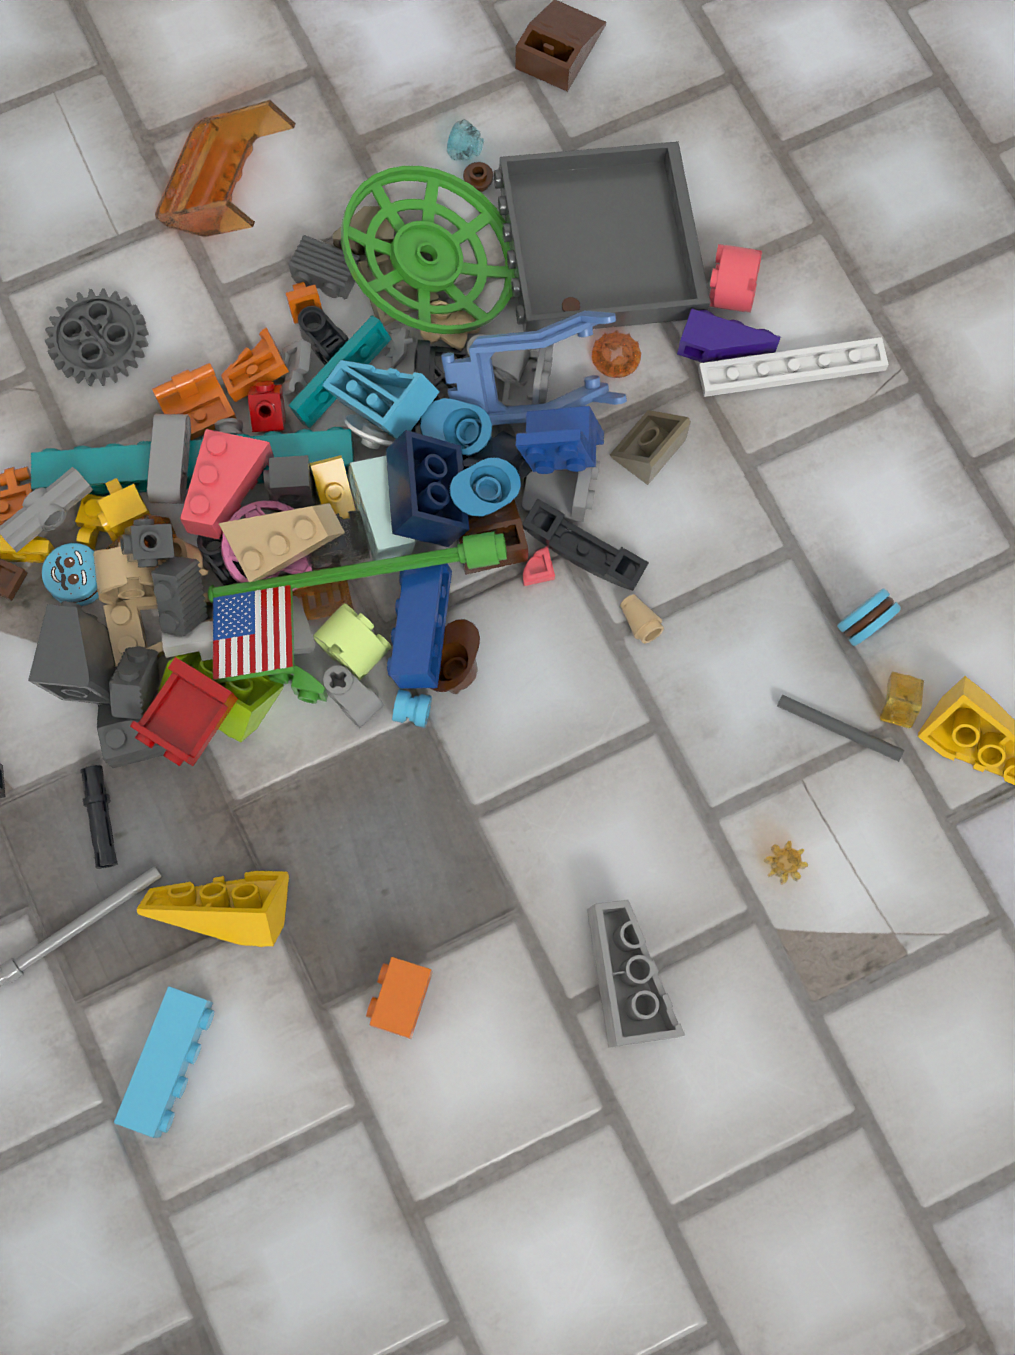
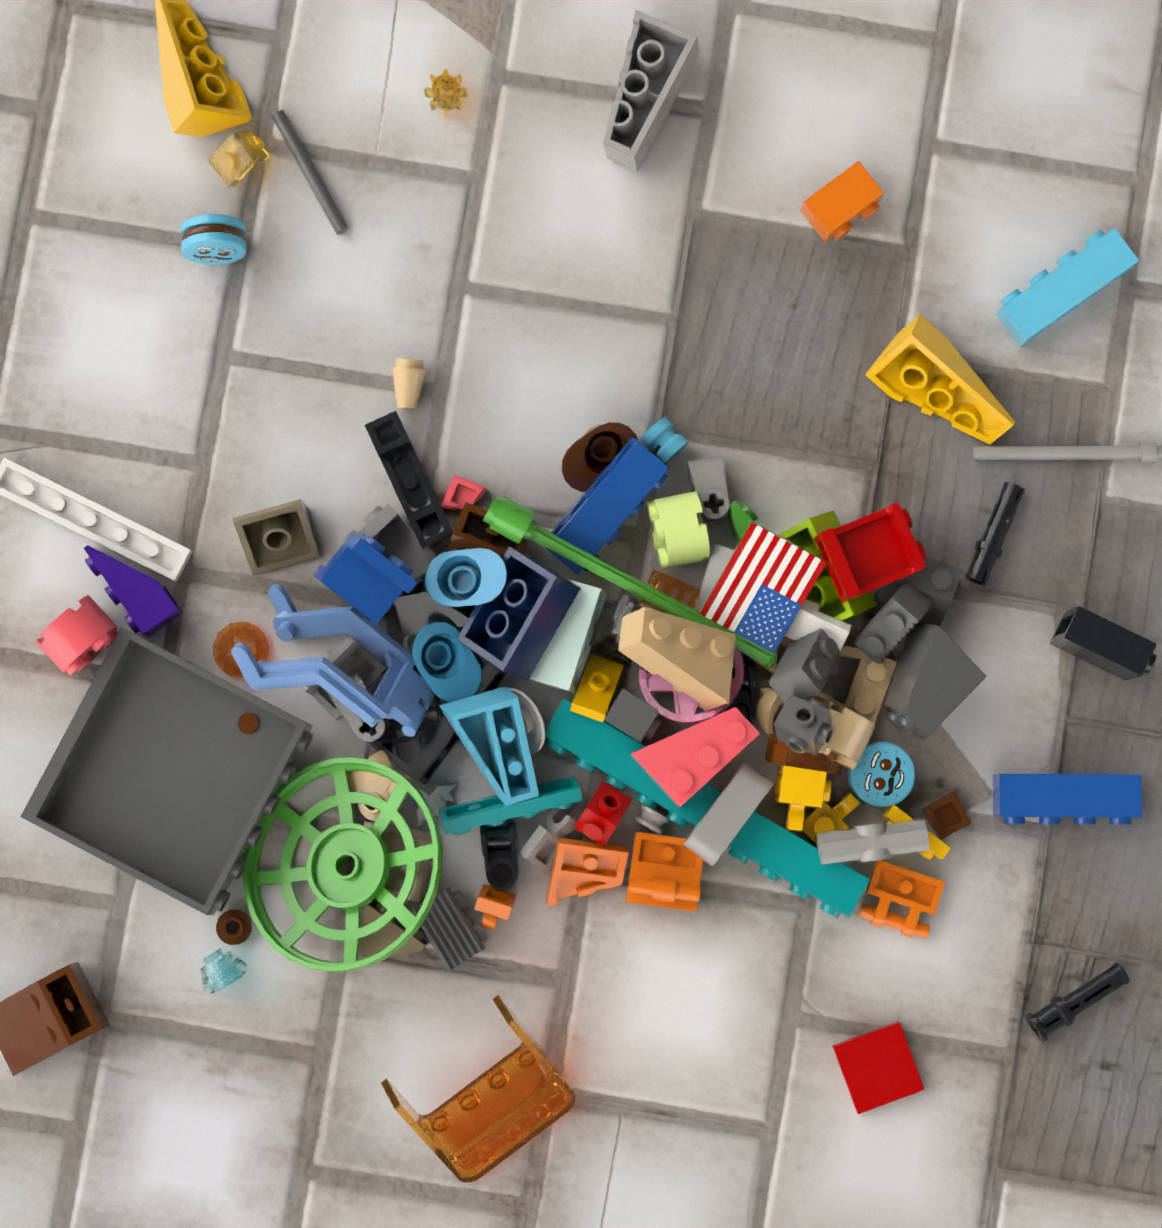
camera: 145 degrees left, 10 degrees up
(120, 321) = (744, 1003): dark grey gear -> none

